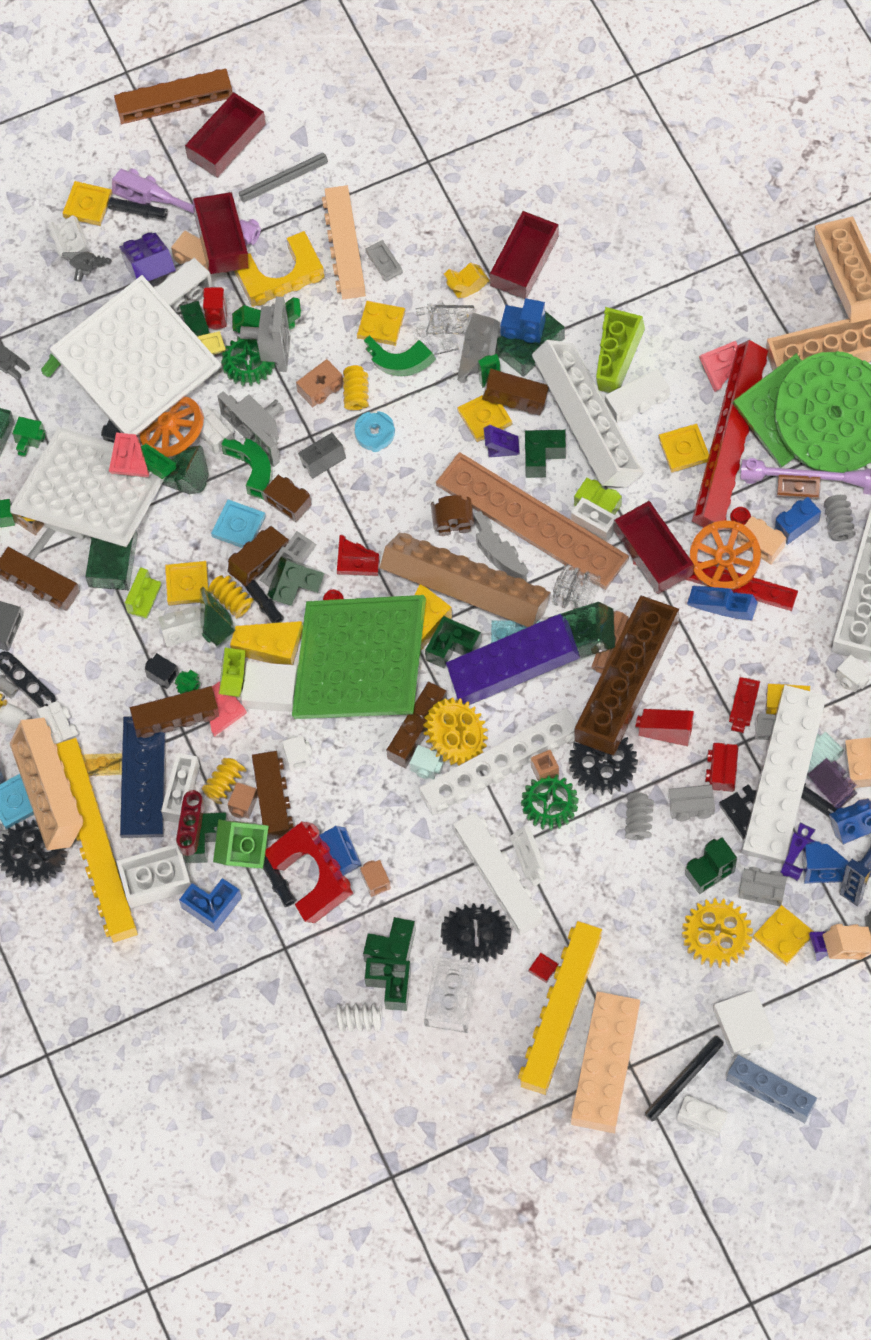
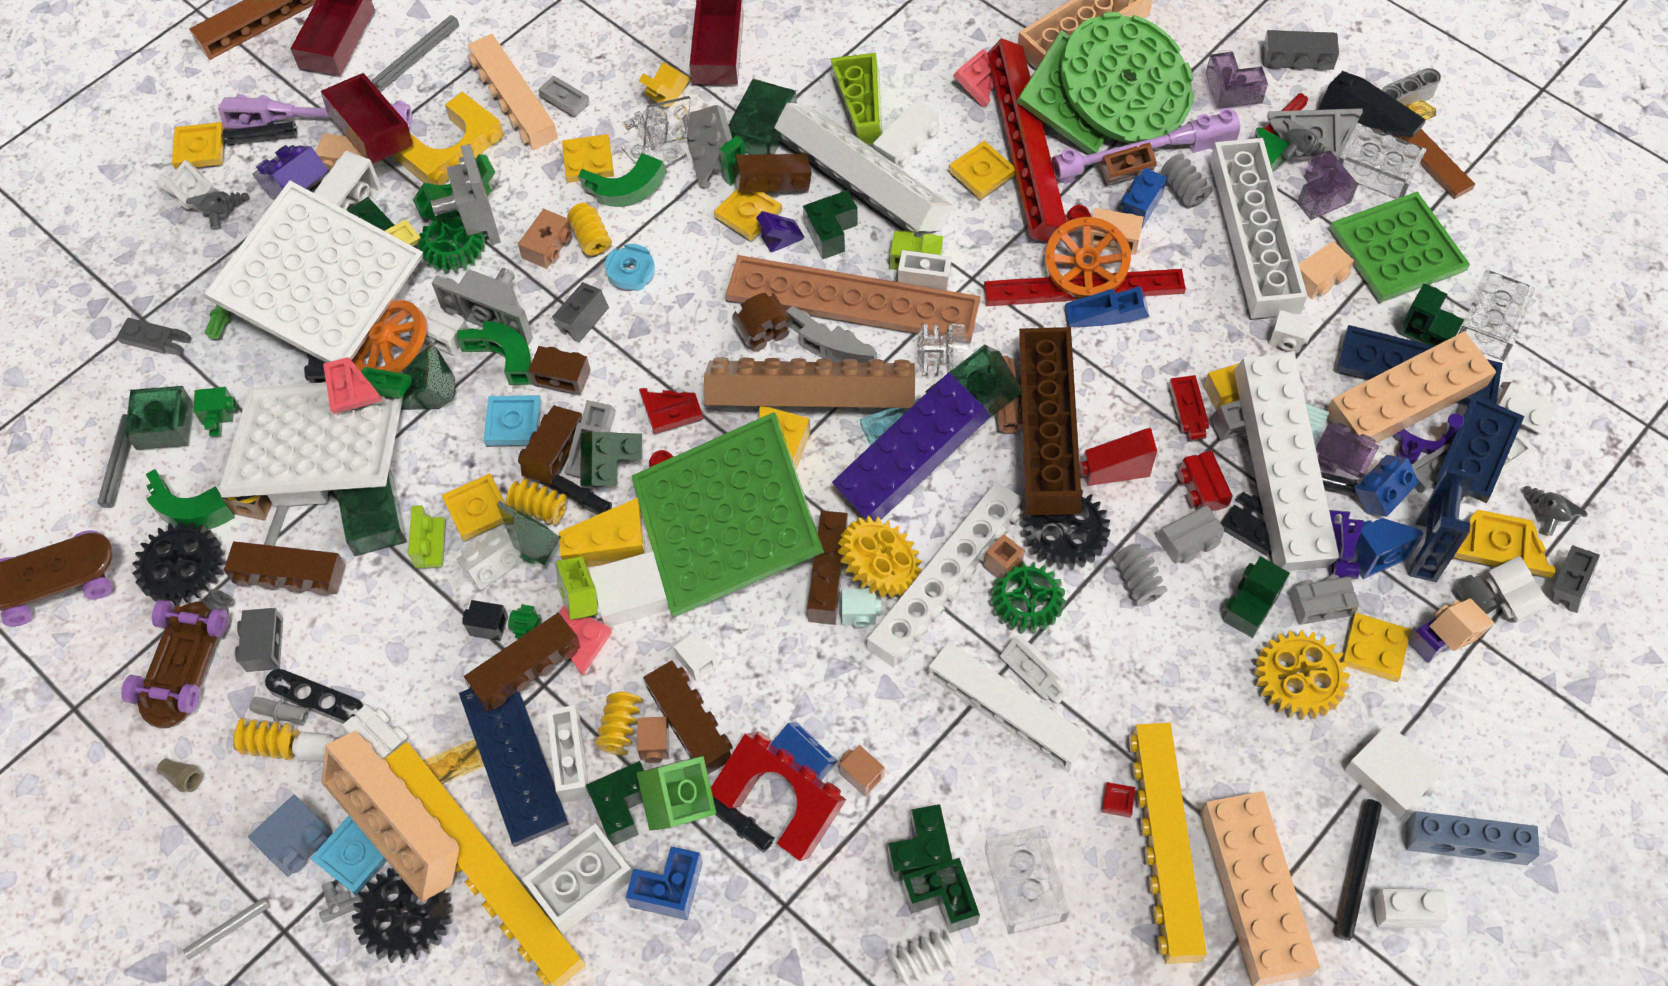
camera: 25 degrees left, 5 degrees down
(190, 832) = (607, 803): dark red beam -> none
(215, 307) = (390, 196): red brick -> none
(451, 638) = (824, 453): dark green brick -> none
(459, 933) = (1020, 789): black gear -> none
(524, 322) = (753, 95): blue brick -> none
(653, 547) = (1007, 274): dark red piece -> none

